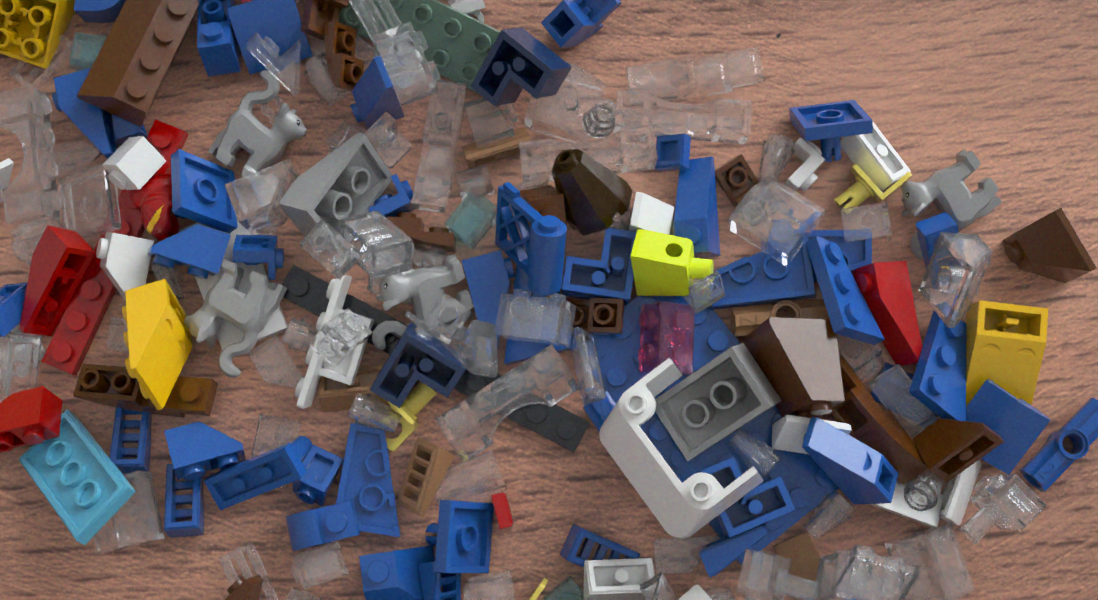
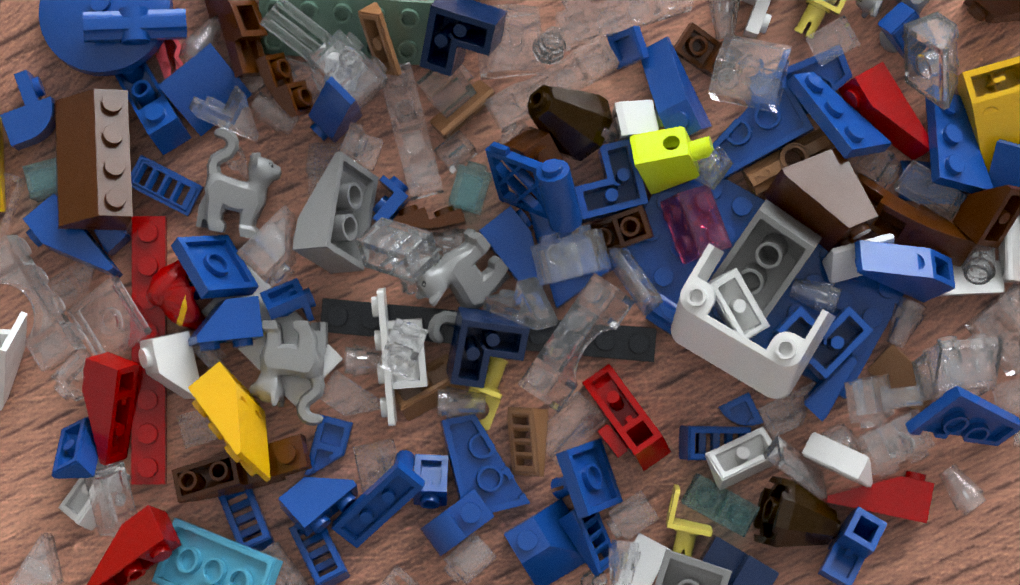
camera: 25 degrees left, 5 degrees up
(133, 163) = (139, 267): white brick -> none
(190, 85) = (190, 199): none -> blue slope
(239, 400) = (329, 443): none -> blue tile
(330, 249) = (361, 272): clear bracket -> none
(432, 325) = (481, 303): clear bracket -> none
(445, 47) = (379, 38): none -> medium nougat slope
(525, 495) = (627, 417): none -> red slope
(637, 535) = (741, 411): none -> blue tile
(674, 431) = (737, 304): none -> white slope

